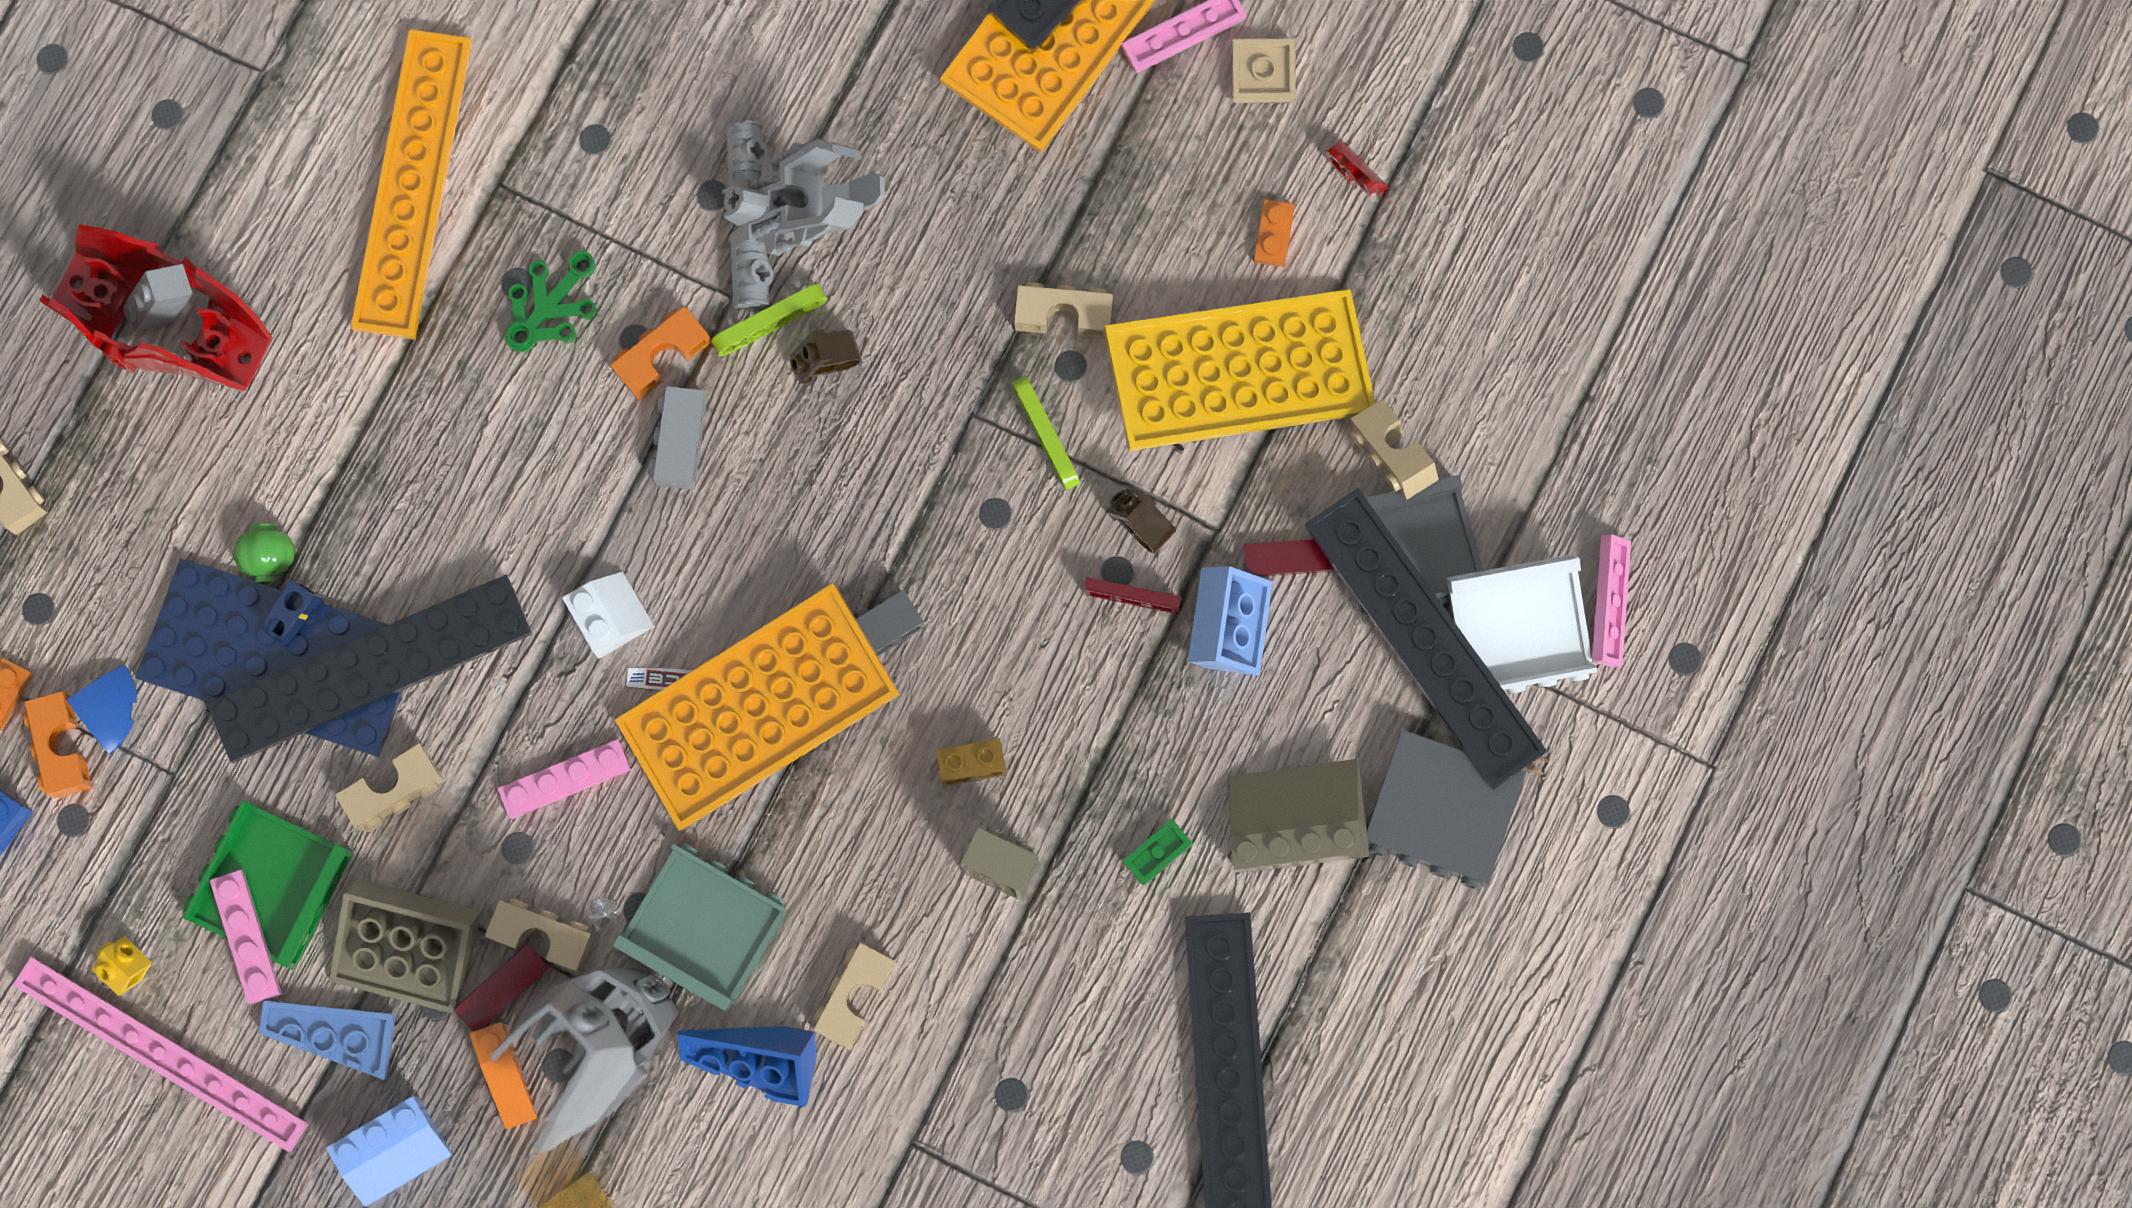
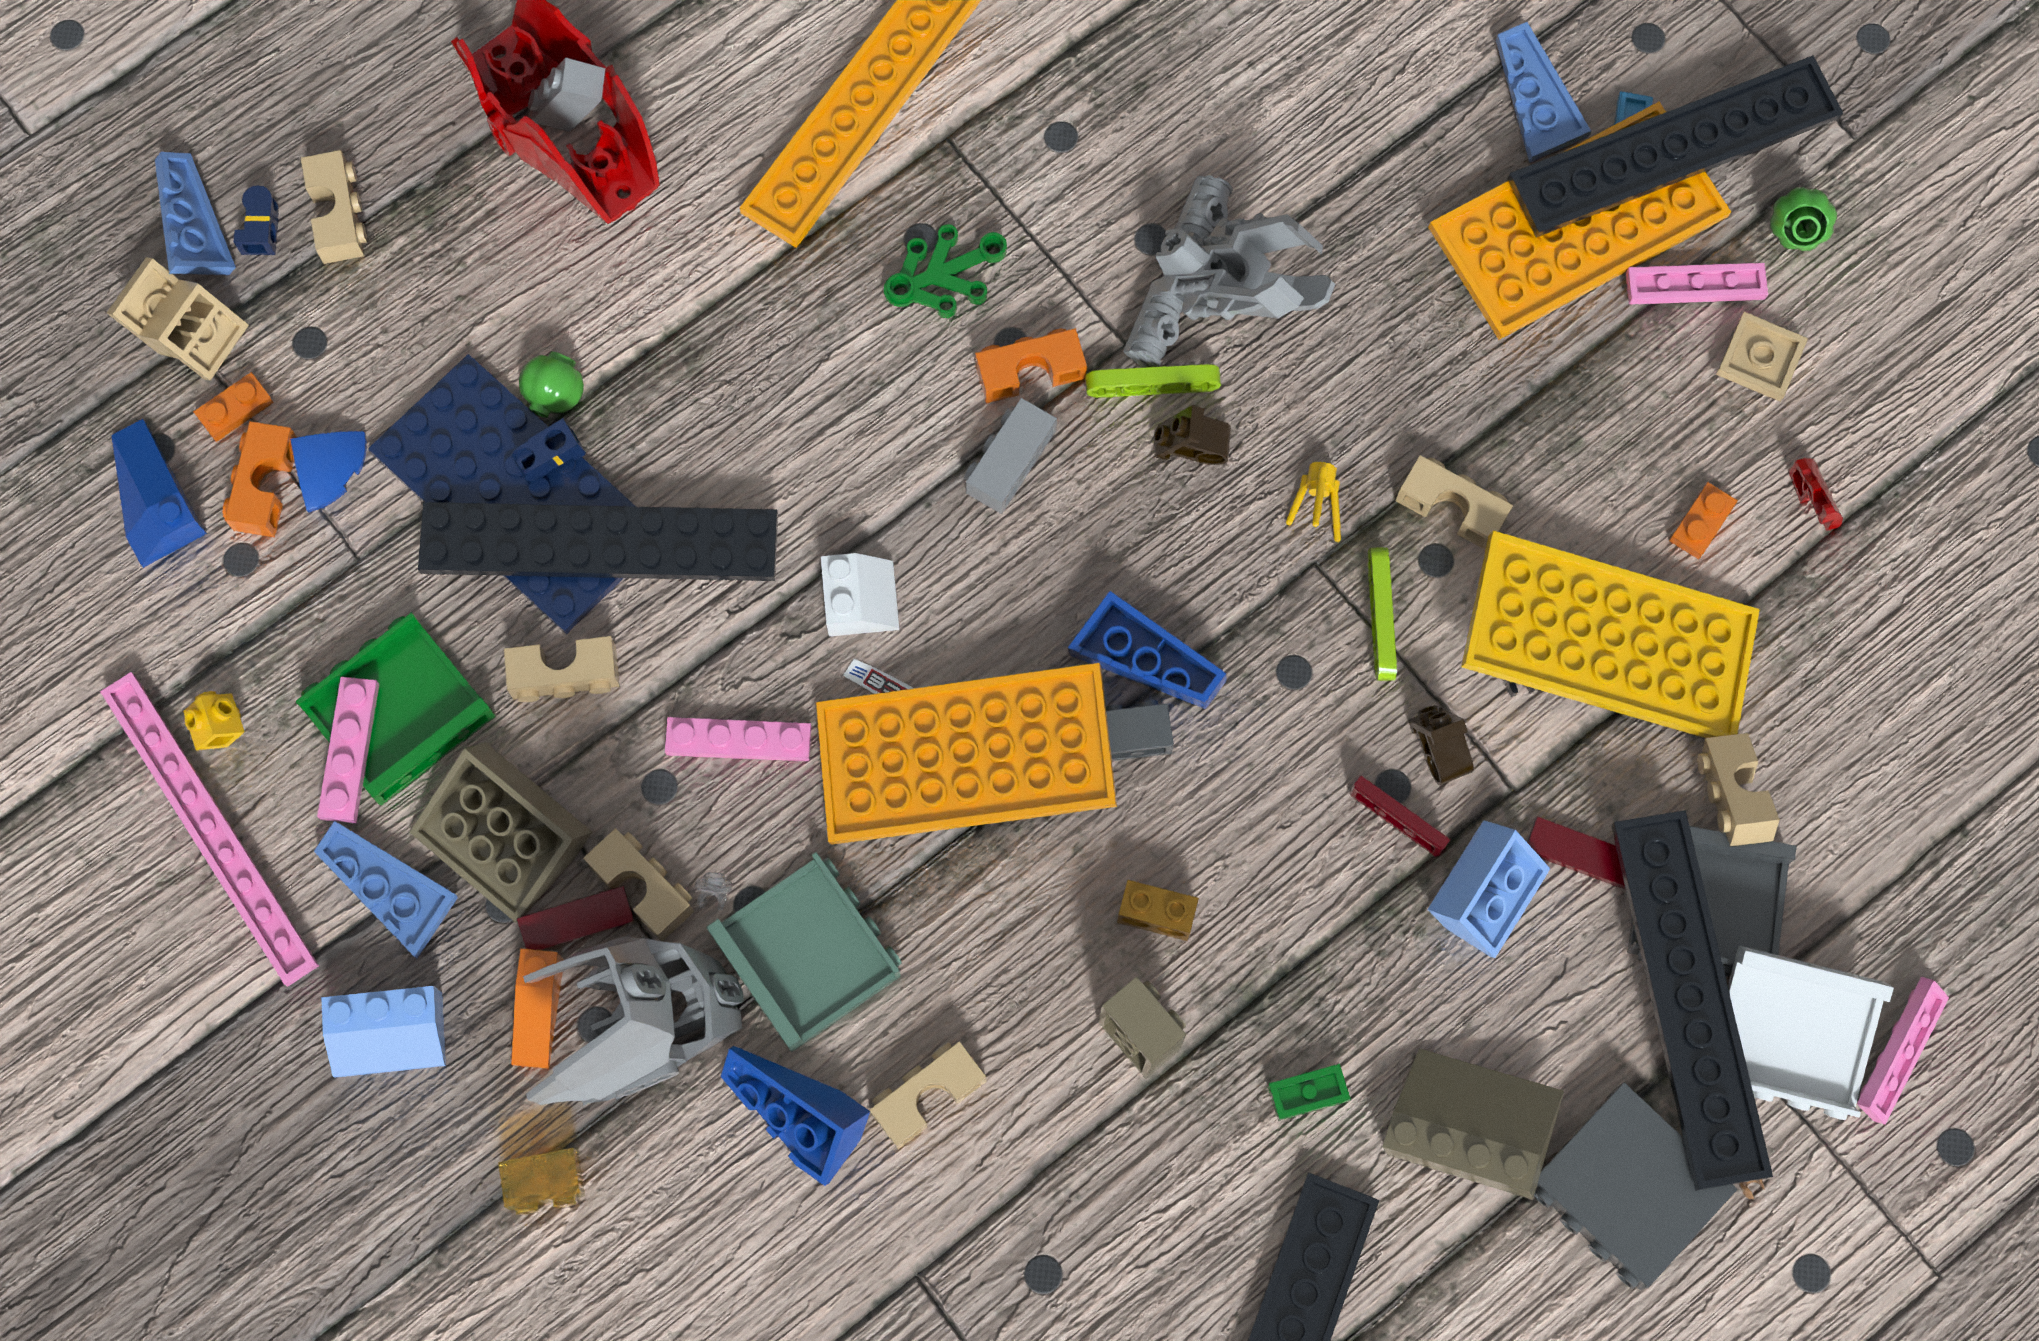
camera: 20 degrees right, 5 degrees down
(860, 554) = (1146, 653): none -> blue wedge
(947, 343) = (1320, 484): none -> yellow plant

